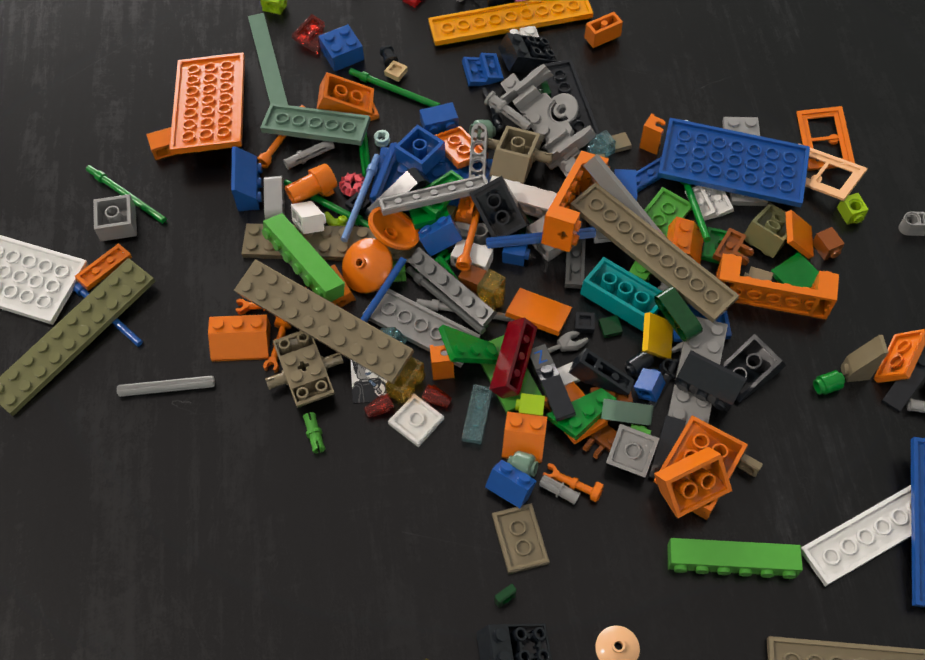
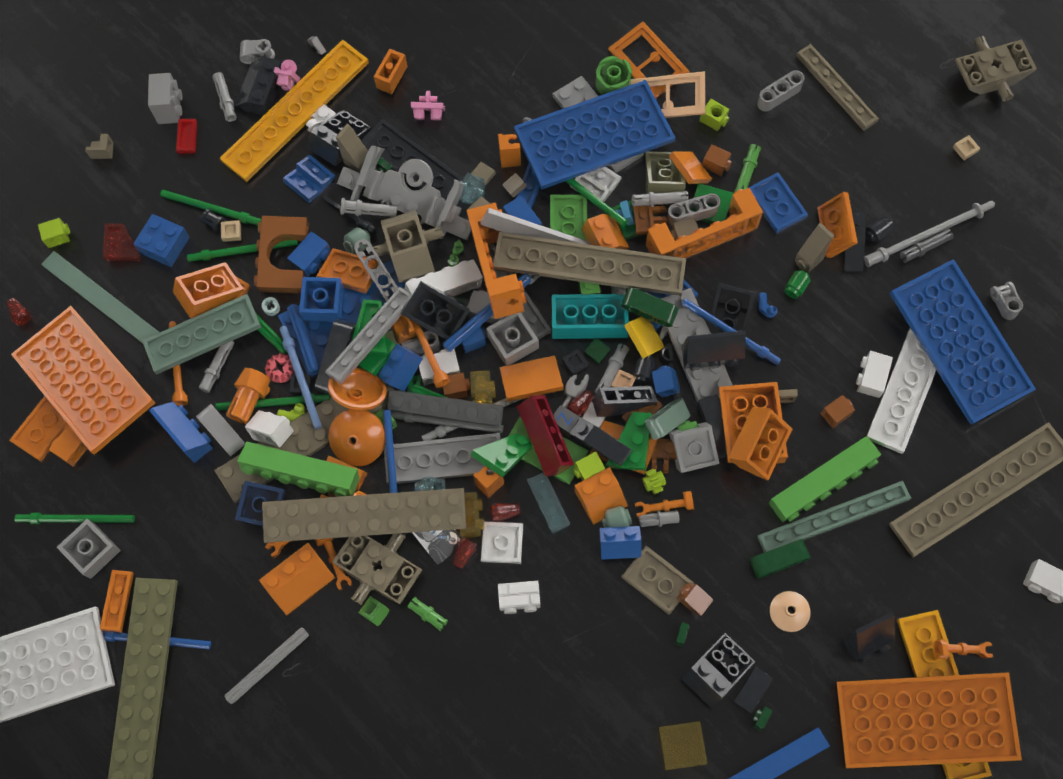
camera: 35 degrees left, 10 degrees up
(151, 121) = (39, 430): none -> orange tile
(205, 38) = (18, 312): none -> clear red cone
(255, 250) = (251, 501): none -> dark blue brick
(276, 403) = (374, 611): none -> bright green slope
(395, 469) = (519, 596): none -> white brick
(412, 66) = (243, 217): none -> green bar
(423, 86) = (273, 231): none -> dark orange arch
(527, 57) = (351, 148): none -> dark tan slope
(538, 573) = (694, 598): none -> brick
(546, 271) = (512, 338): none -> light grey brick
(555, 184) = (456, 251): none -> bright green piece
(563, 356) = (581, 403): none -> clear red cone
(578, 455) = (654, 481): none -> lime gear
(614, 68) = (420, 107): none -> bright pink hips
(615, 345) = (615, 364): none -> light grey pin
(616, 360) = (623, 379): none -> light nougat plate
(639, 163) = (514, 185): none -> dark tan tile
(641, 595) = (779, 558): none -> dark green beam
(716, 235) = (626, 212): none -> dark azure tile
(720, 597) = (835, 516): none -> sand green tile
(752, 239) = (659, 198): none -> light grey pin
(755, 416) = (761, 351): none -> blue bar
(784, 382) = (764, 308): none -> blue arm
(785, 127) = (612, 75): none -> bright green brick
(785, 265) = (698, 203): none -> light grey beam
(789, 509) = (838, 411): none -> dark orange brick
(847, 501) = (874, 374): none -> white brick
(855, 264) = (749, 163): none -> bright green pin
(859, 309) = (778, 203): none -> blue tile

